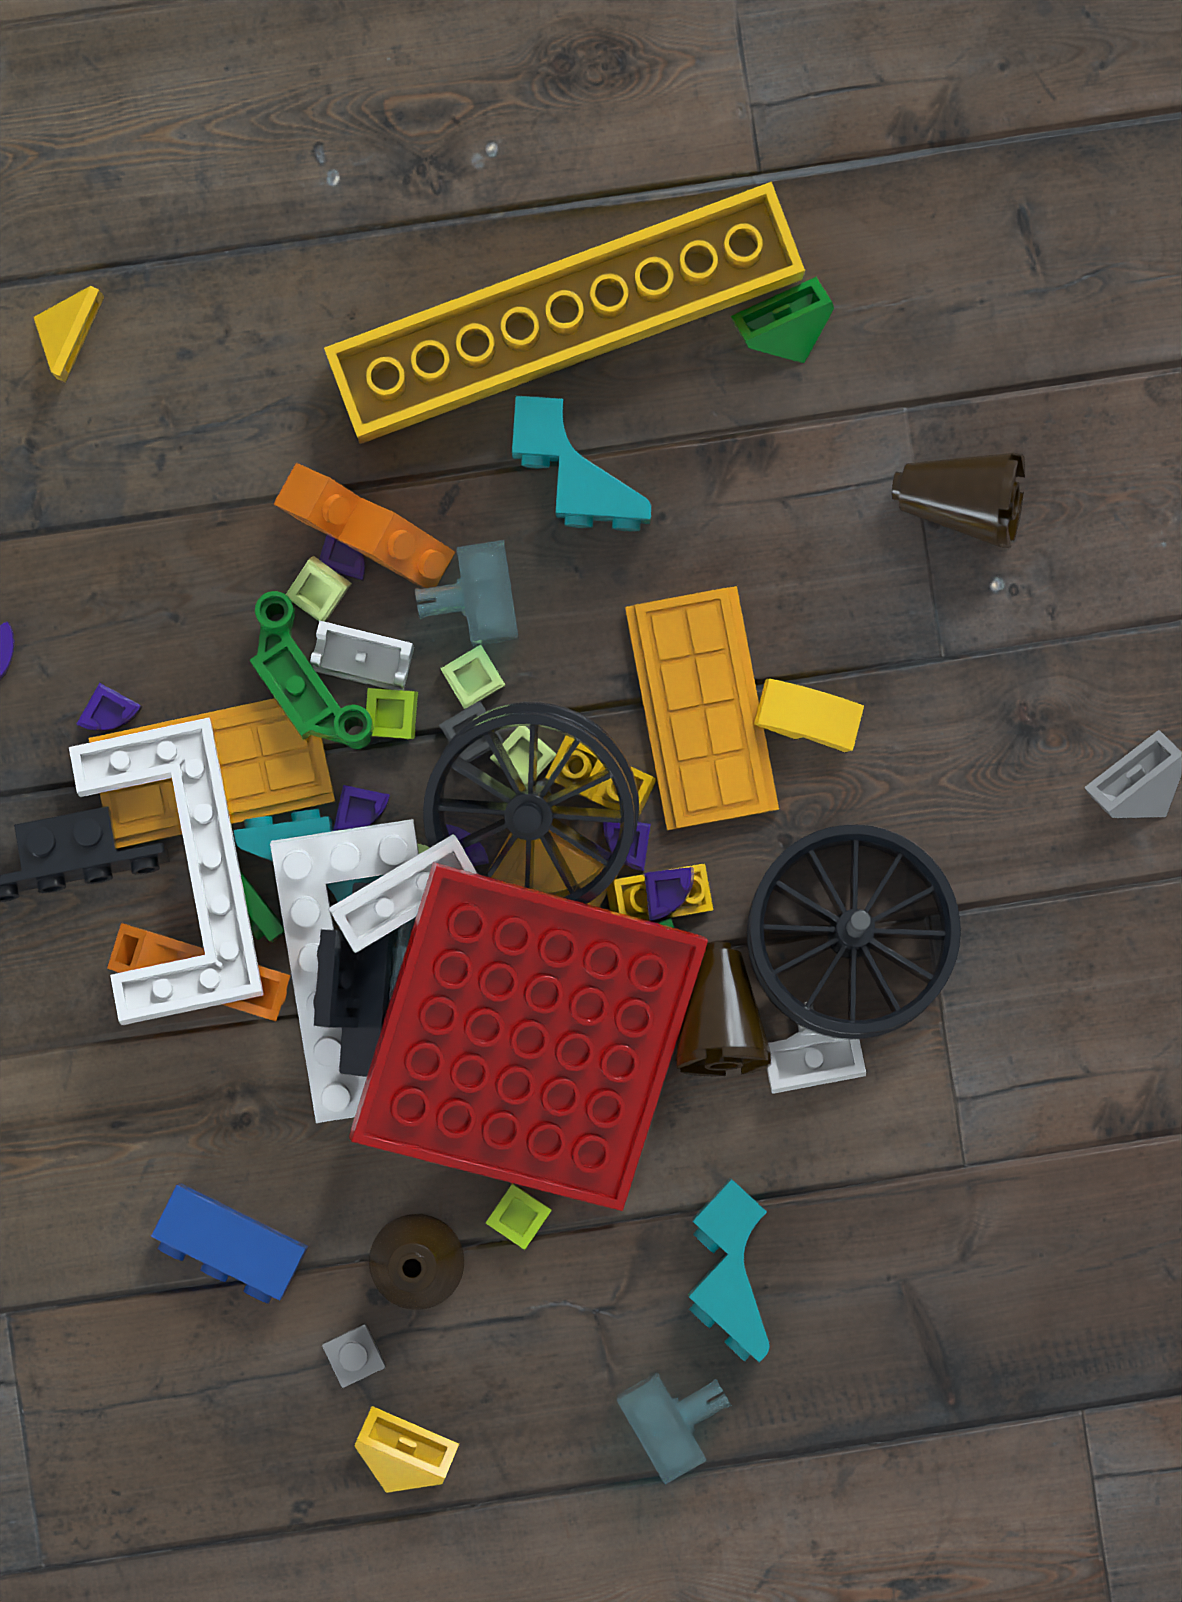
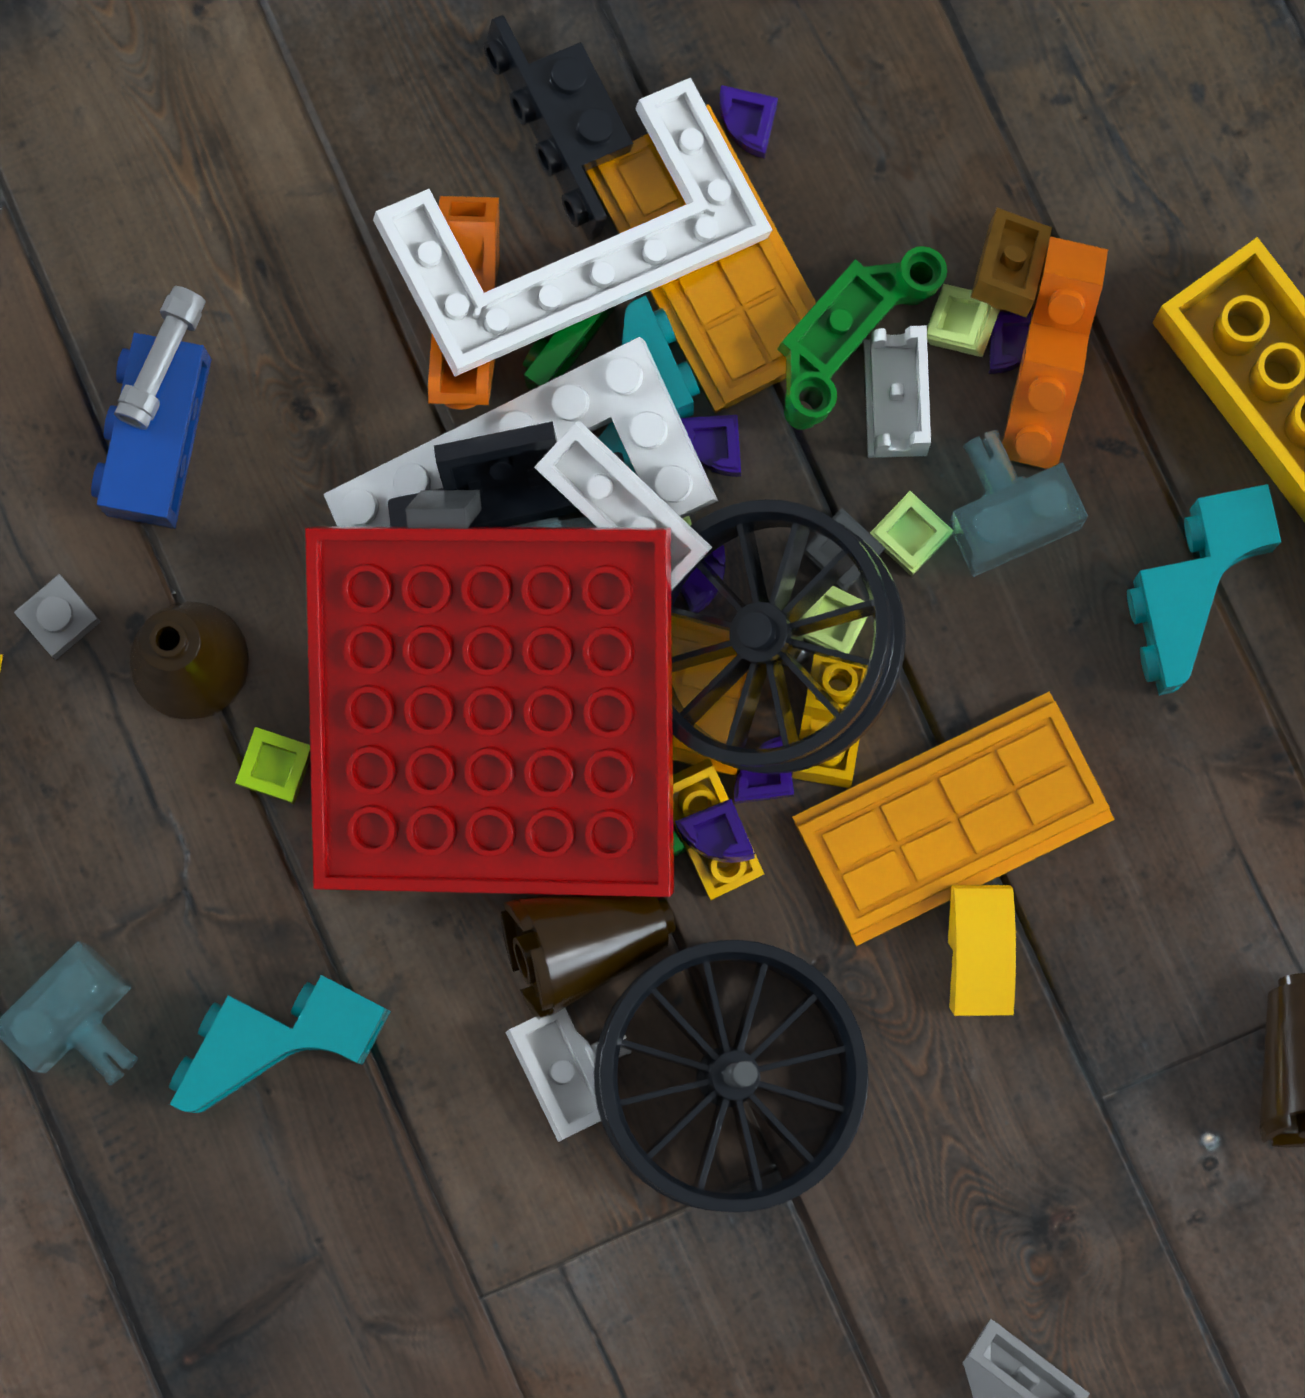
camera: 80 degrees right, 5 degrees down
(210, 1246) = (181, 313): none -> light grey bar
(285, 540) = (1011, 262): none -> pearl gold plate
(365, 1031) = (443, 509): none -> dark grey tile
(392, 712) = (840, 447): lime plate -> none

